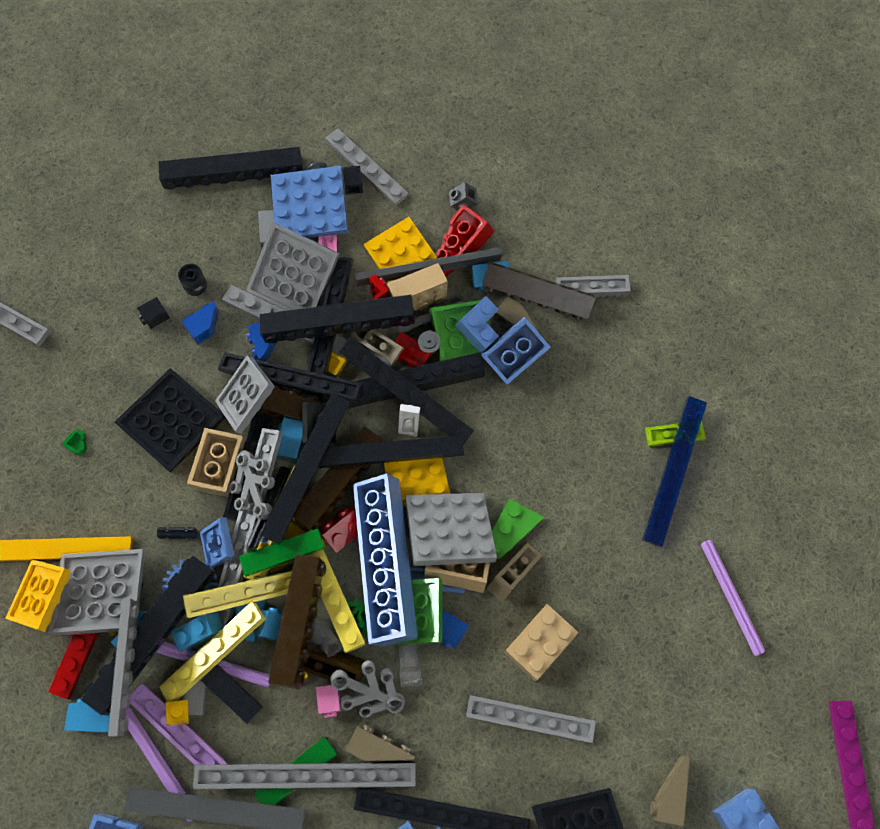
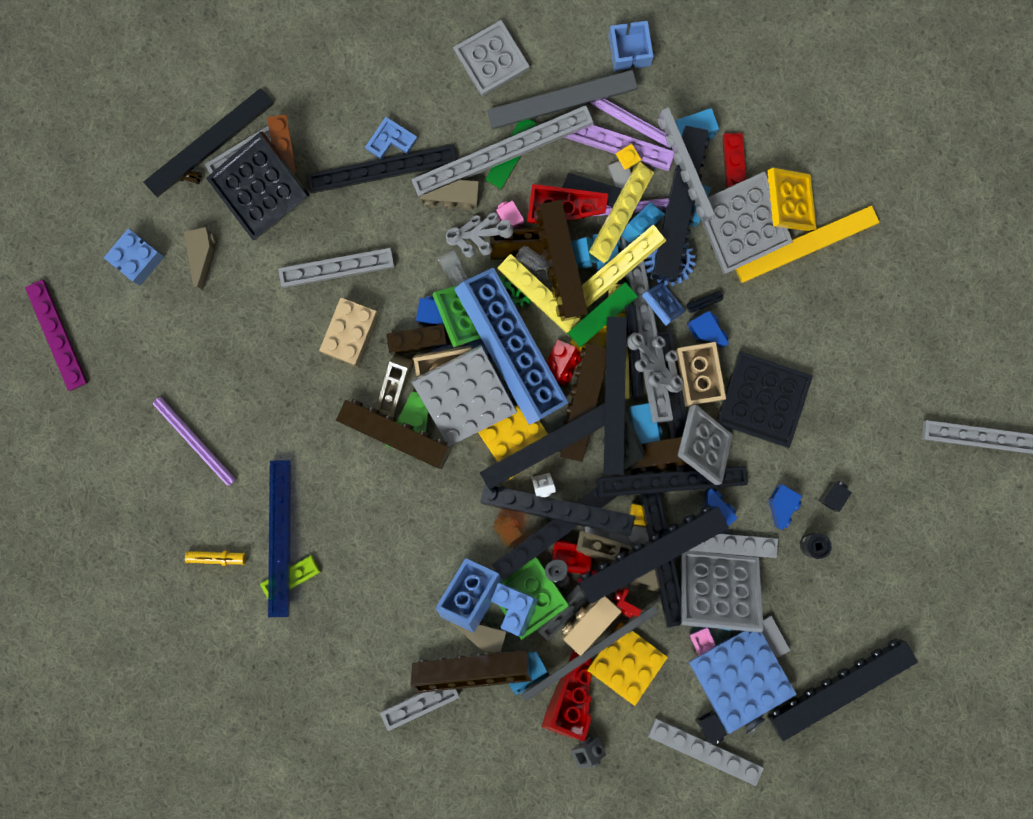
camera: 160 degrees right, 15 degrees up
(76, 442) = (837, 344): green tile -> none
(189, 503) = (706, 330): none -> blue slope
(253, 681) = (575, 202): none -> red wedge
(458, 397) = (507, 529): none -> clear orange brick
(475, 606) = (416, 340): none -> dark brown brick
(532, 522) = (394, 434): none -> dark brown brick
(734, 474) = (215, 558): none -> yellow pin

